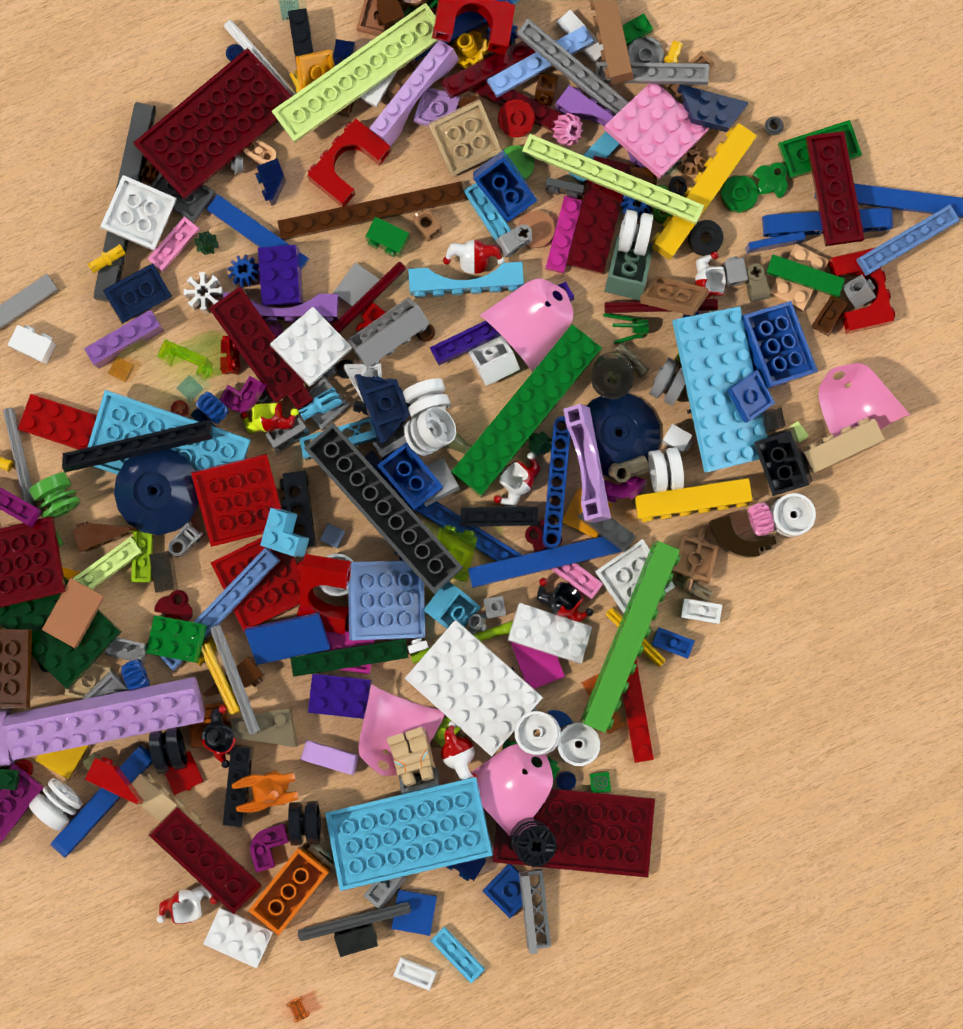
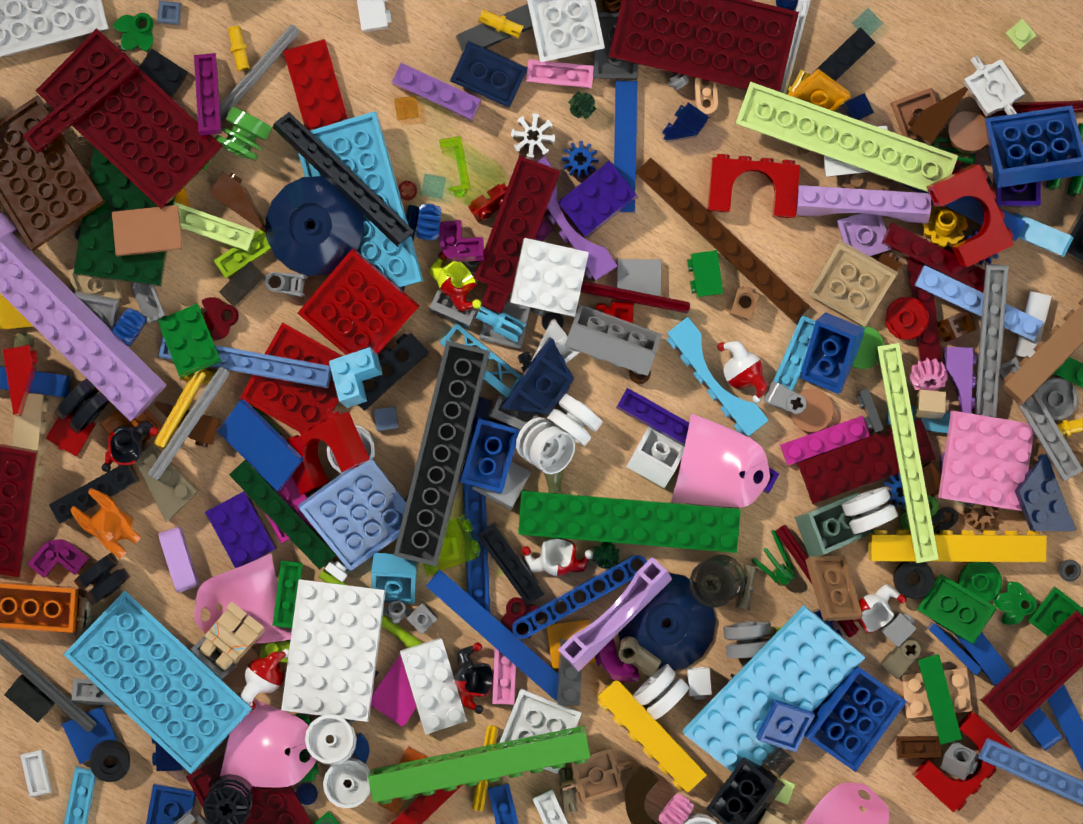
camera: 55 degrees right, 5 degrees up
(409, 694) = (286, 593): none -> green plate
(453, 914) = (114, 772): none -> black tyre
(589, 141) = (931, 404): none -> tan brick
(748, 220) = (956, 609): none -> green plate

